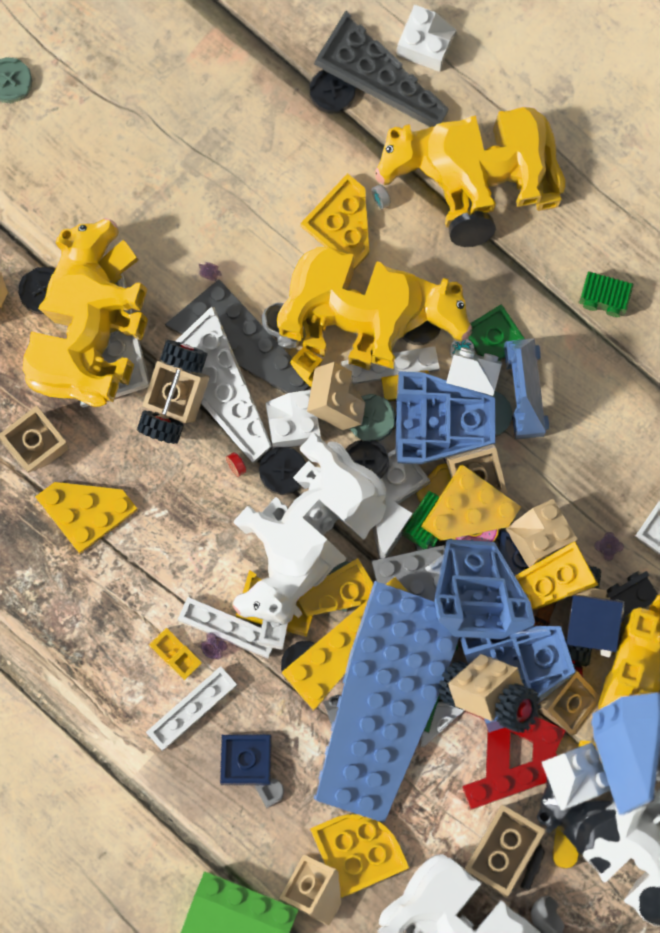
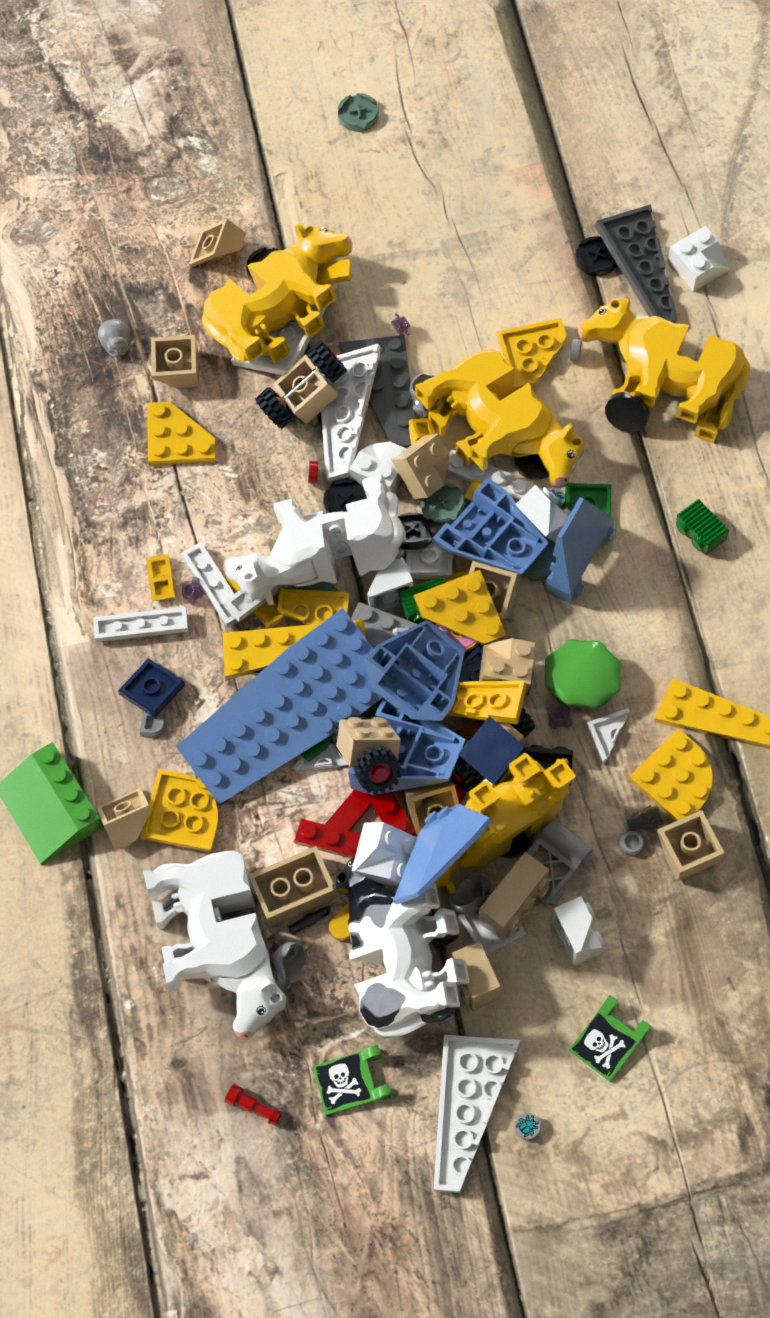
camera: 45 degrees right, 10 degrees down
(606, 497) = (582, 674): none -> bright green piece

